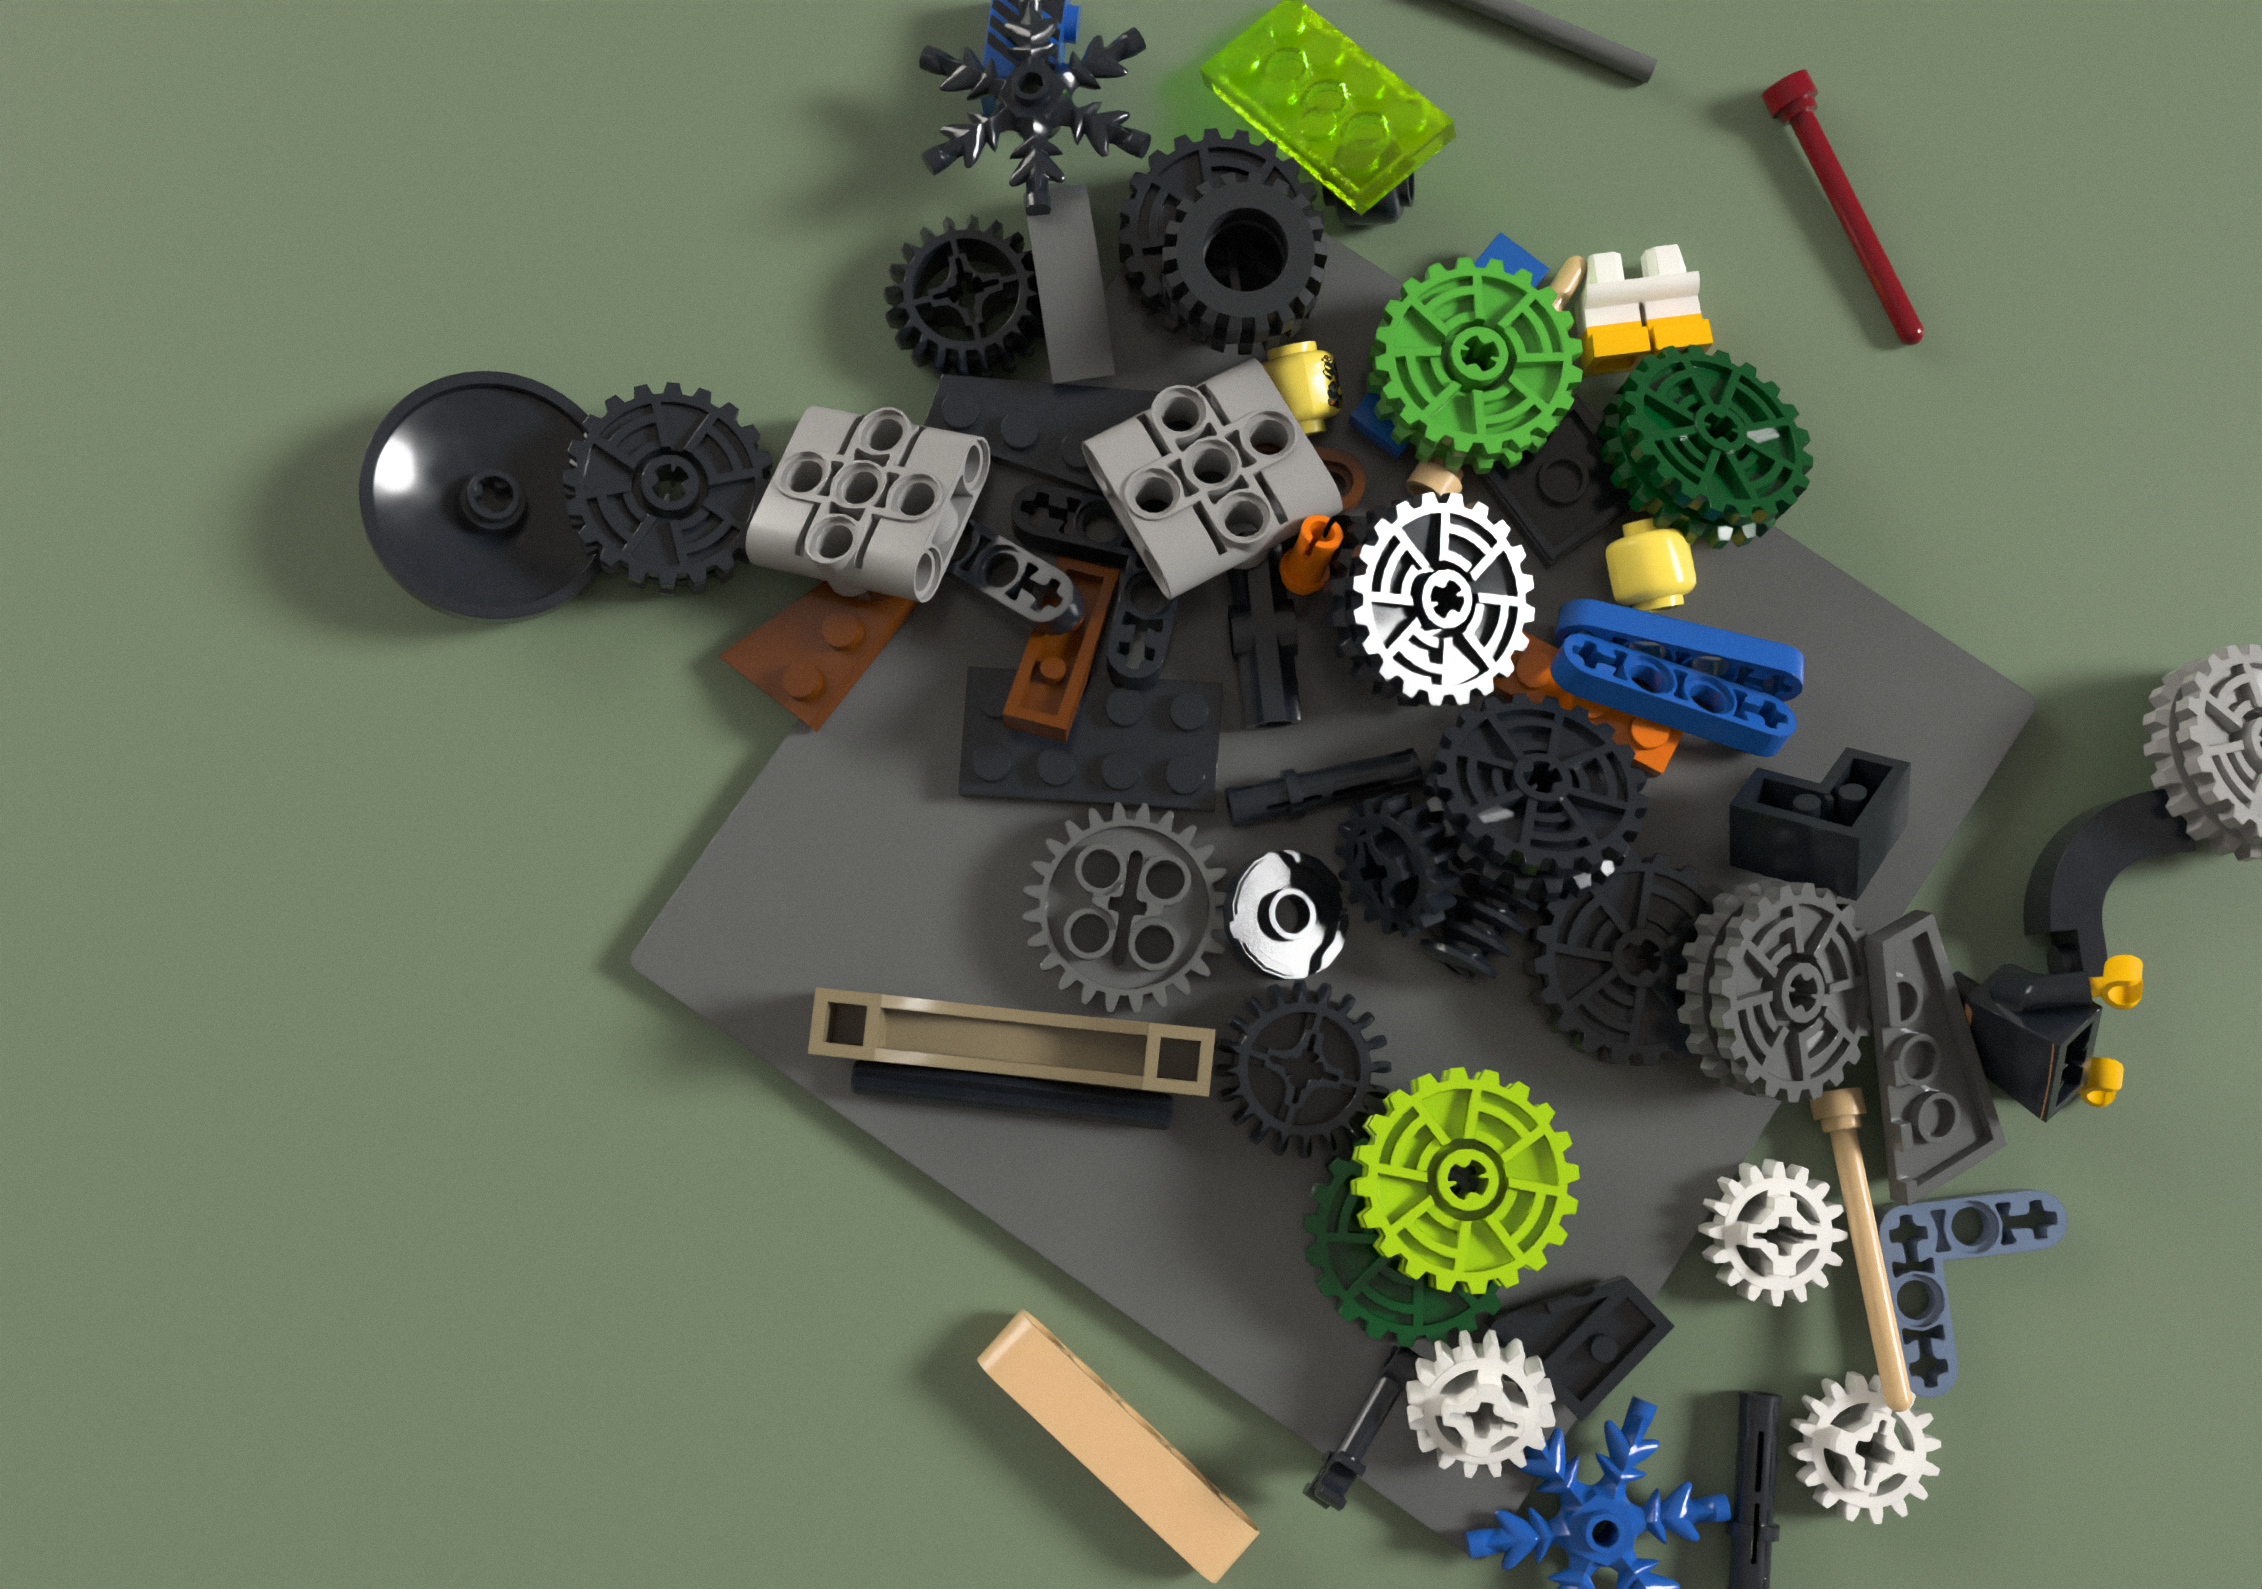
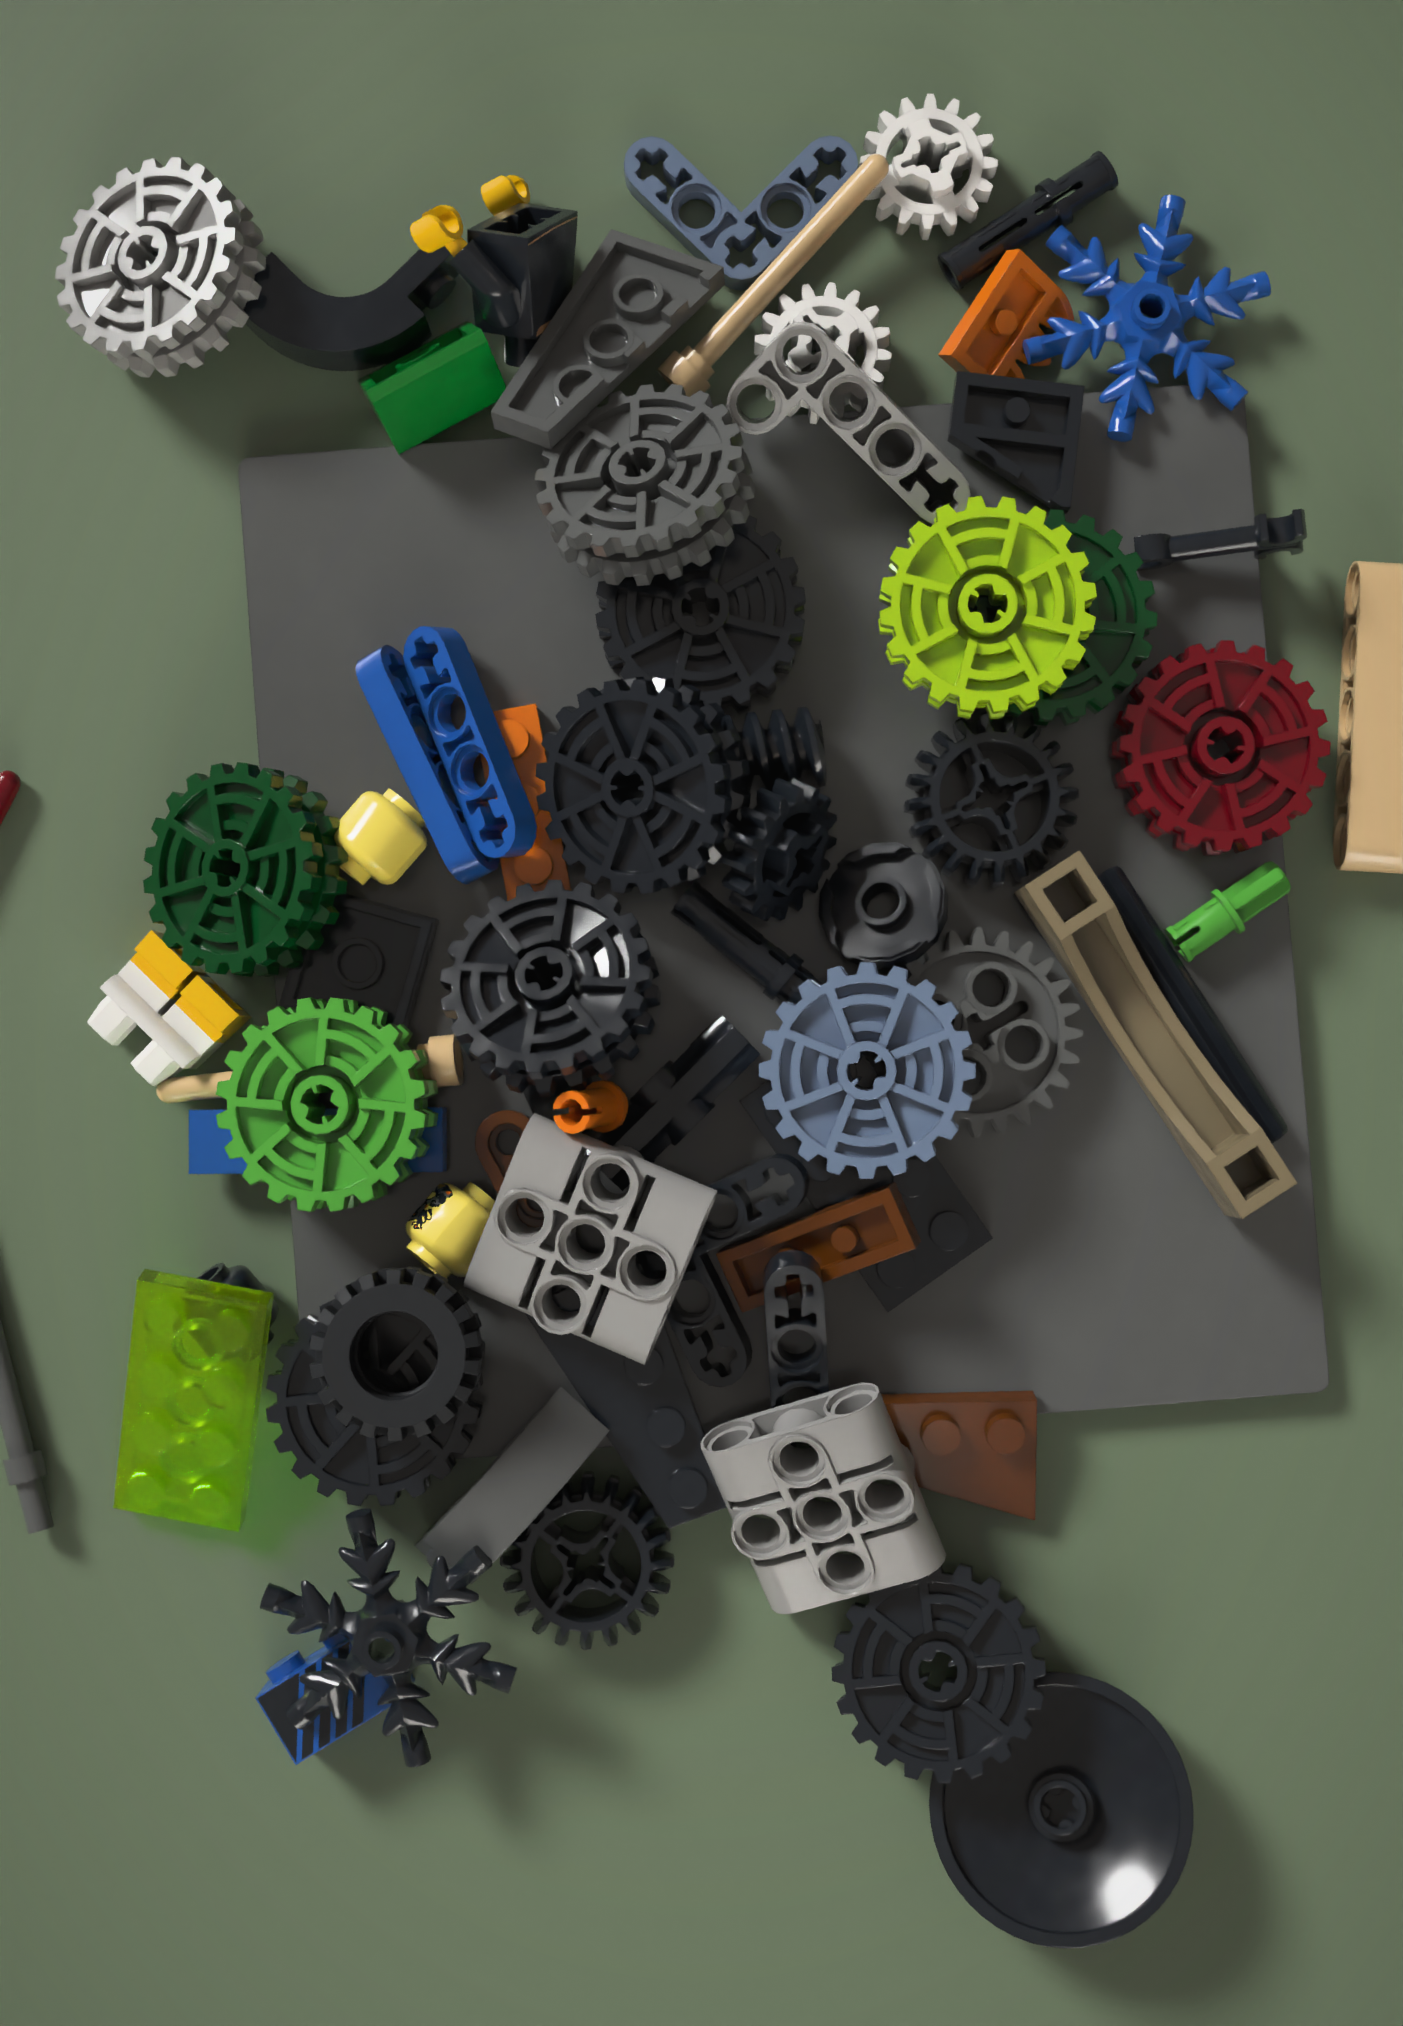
camera: 130 degrees left, 5 degrees up
(1061, 1189) = (1229, 910): none -> bright green axle
(1178, 740) = (904, 1106): none -> sand blue piece
(1234, 1325) = (1251, 787): none -> dark red piece
(1474, 1398) = (1136, 469): white gear -> none
(1685, 1199) = (858, 431): none -> light grey beam
(1690, 1408) = (1002, 316): none -> orange plate
(1823, 830) = (492, 540): black brick -> none
(1984, 893) = (434, 386): none -> green slope

